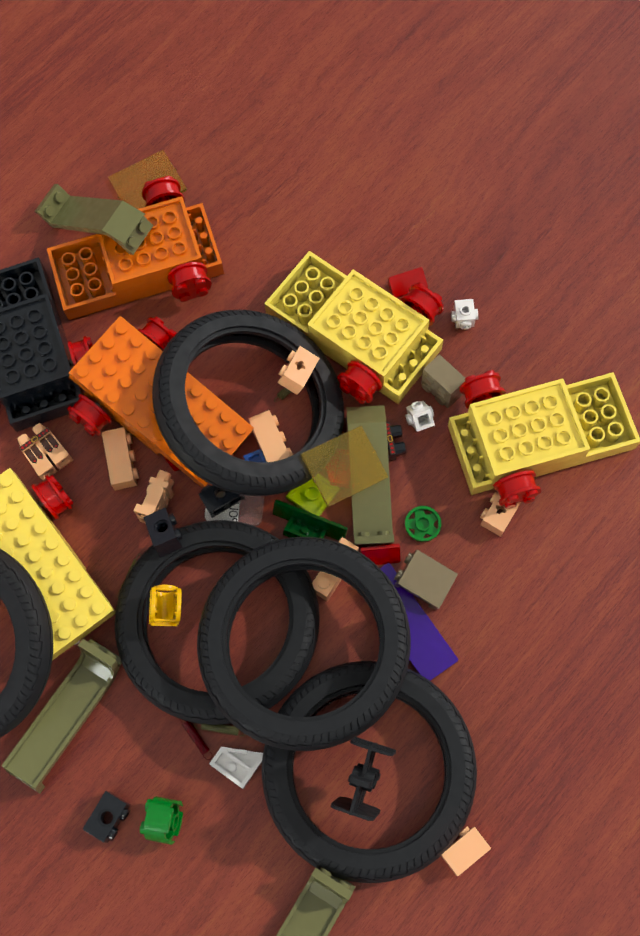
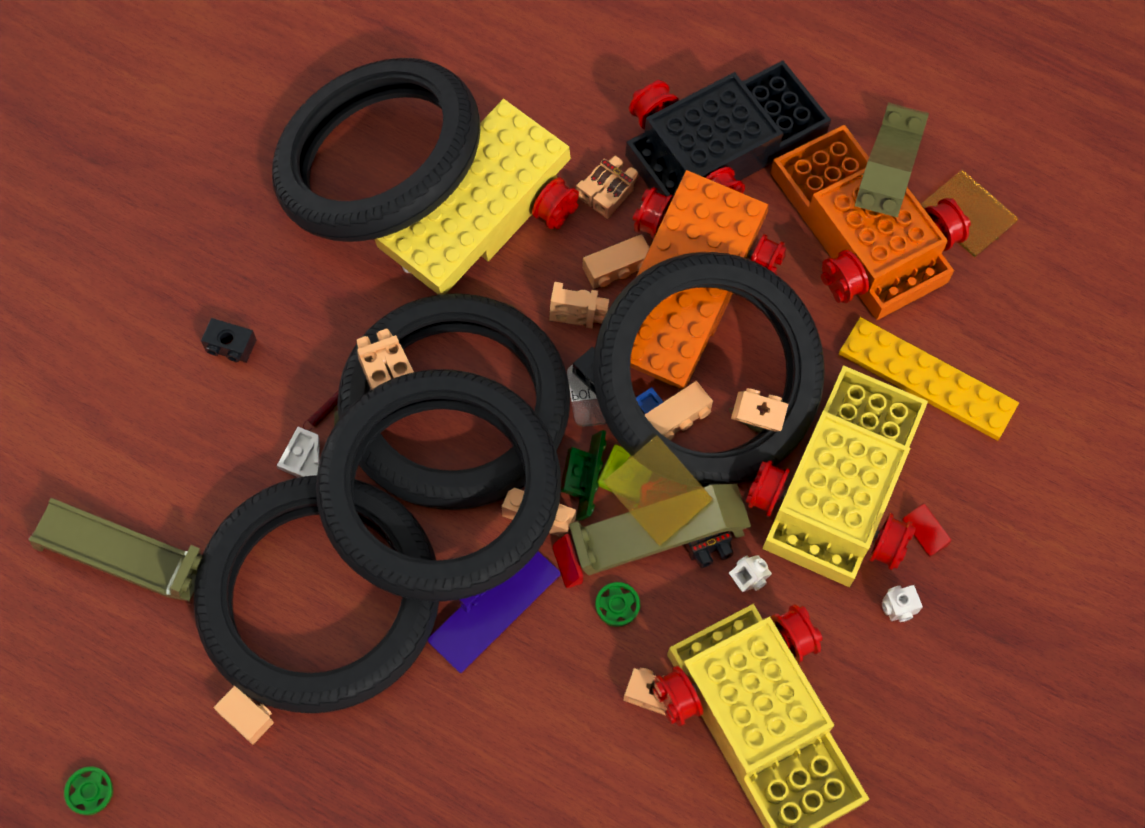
camera: 70 degrees right, 5 degrees down
(63, 715) = (325, 274): olive panel -> none
(162, 820) = (231, 392): green brick -> none
(163, 532) = (535, 315): black brick -> none
(165, 607) = (449, 331): yellow piece -> none
(176, 670) = (381, 356): none -> light nougat hips
(282, 250) = (929, 378): none -> yellow plate
(364, 778) = (290, 568): black piece -> none
(425, 578) = (546, 614): dark tan panel -> none
(442, 381) = (802, 586): dark tan brick -> none

